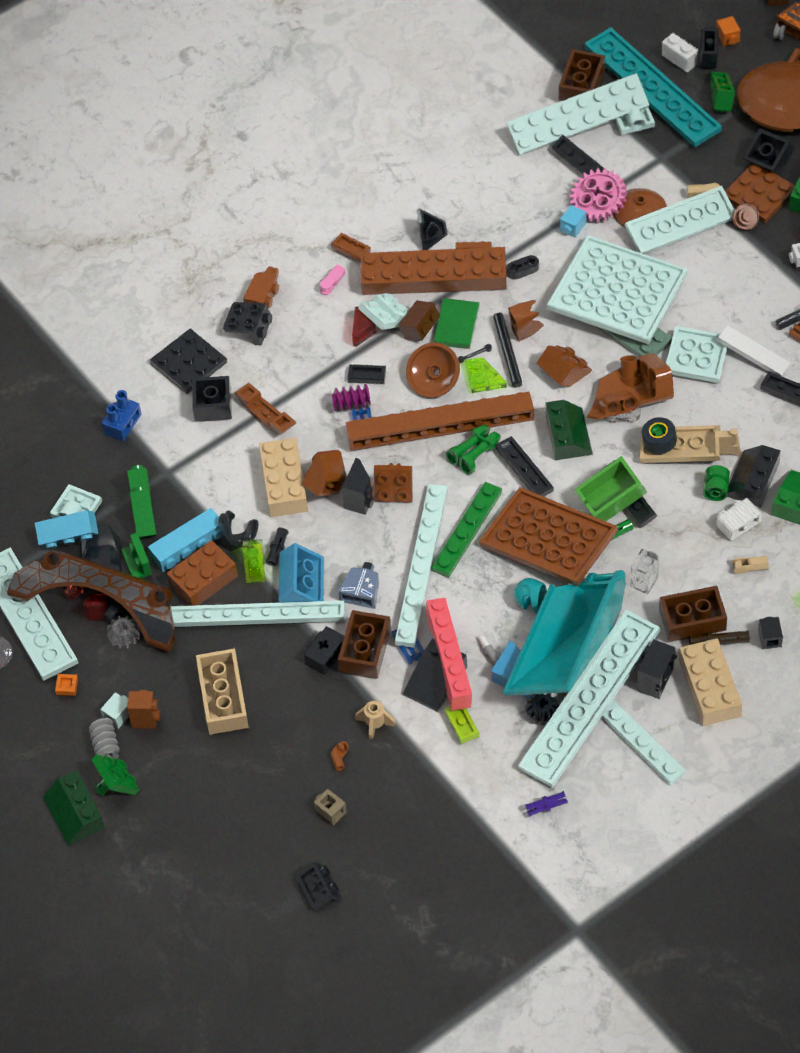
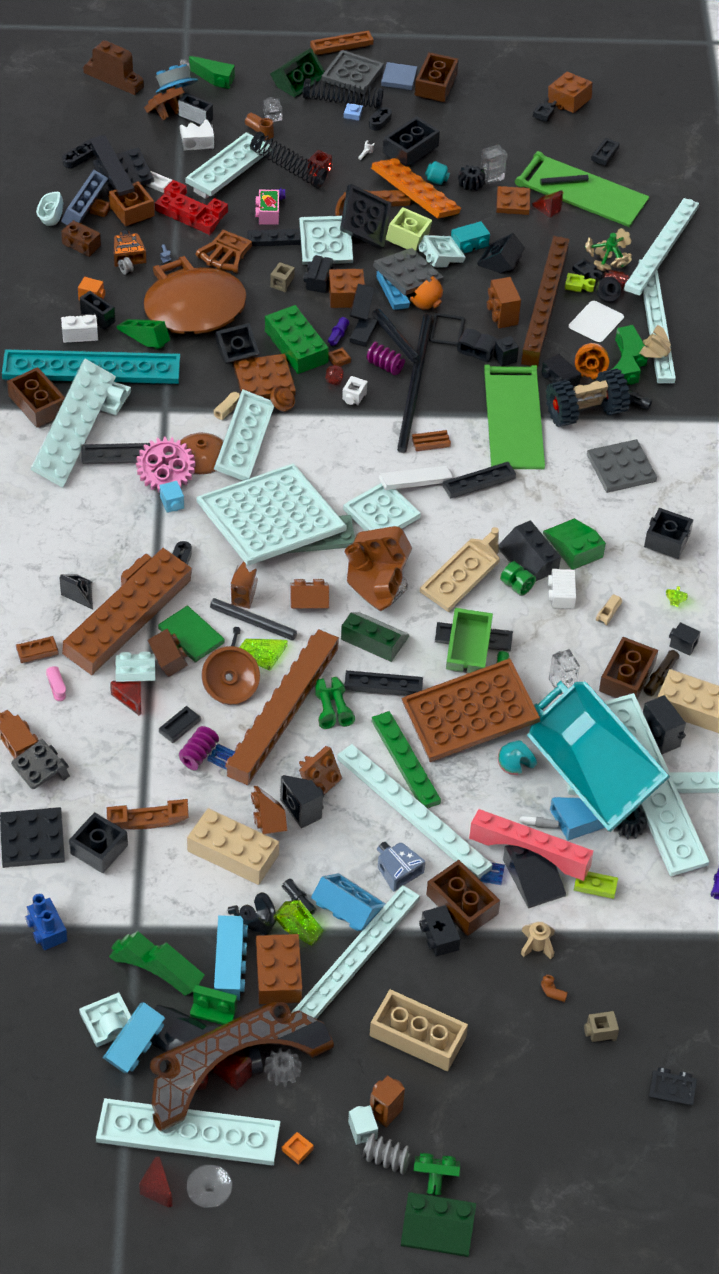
camera: 60 degrees left, 5 degrees down
(659, 435) = (445, 579): black wheel -> none

